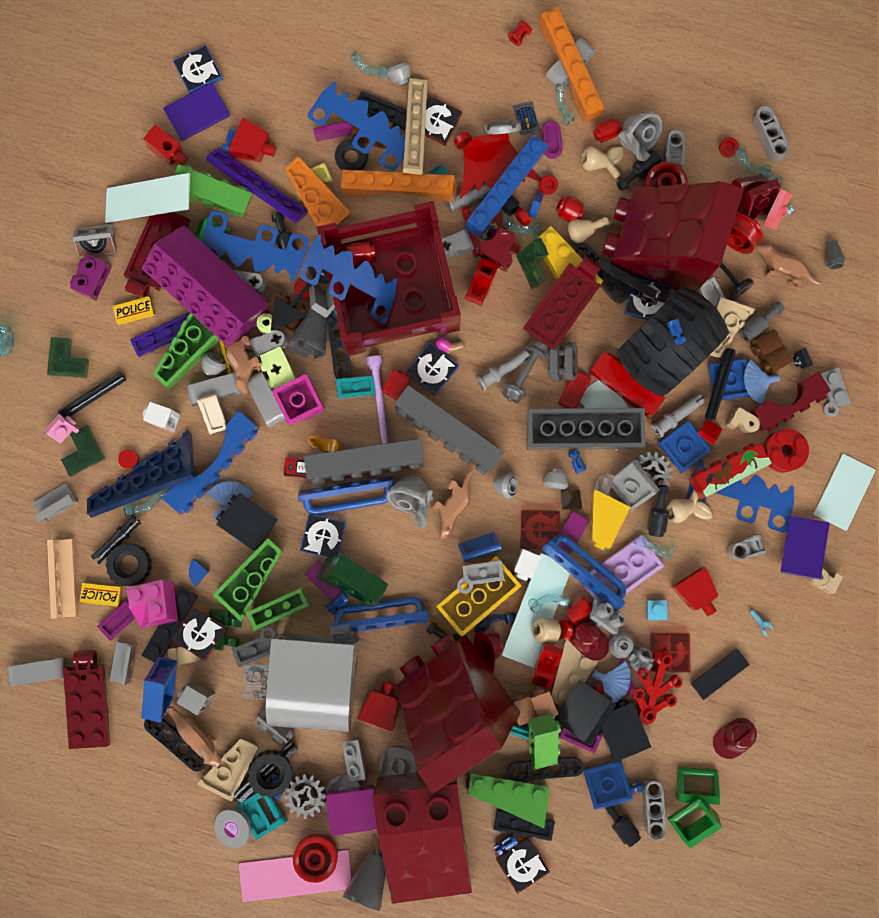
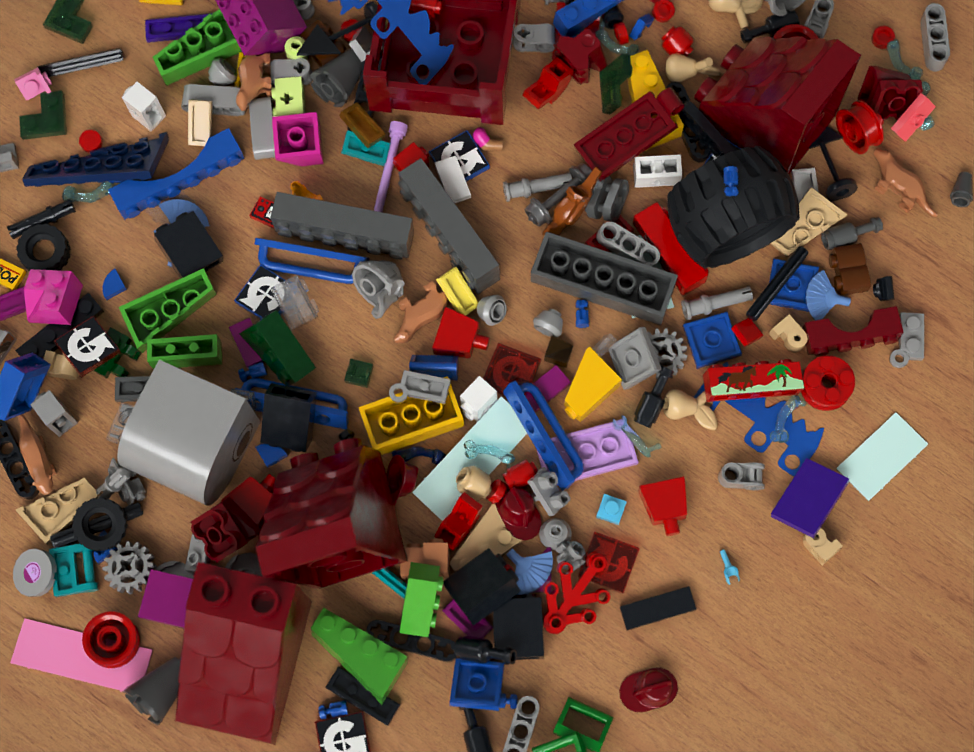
camera: 25 degrees right, 10 degrees down
(267, 737) = (113, 483): none -> light grey axle
(346, 370) = (362, 125): none -> pearl gold tile
(350, 537) = (294, 302): none -> clear brick
(370, 742) = (224, 529): none -> dark red piece
(378, 663) = (270, 455): none -> blue tile
(383, 633) = (288, 417): none -> black brick
(421, 573) = (358, 373): none -> clear green tile
(435, 389) = (453, 179): none -> white tile
(475, 481) = (457, 291): none -> light yellow tile
(489, 515) = (458, 335): none -> red torso
(538, 378) = (573, 204): none -> dark orange animal
(595, 324) = (657, 170): none -> white brick
(602, 760) = (481, 650): none -> black piece
(603, 395) = (616, 244): none -> light grey beam
(762, 505) = (780, 434): none -> clear light blue piece

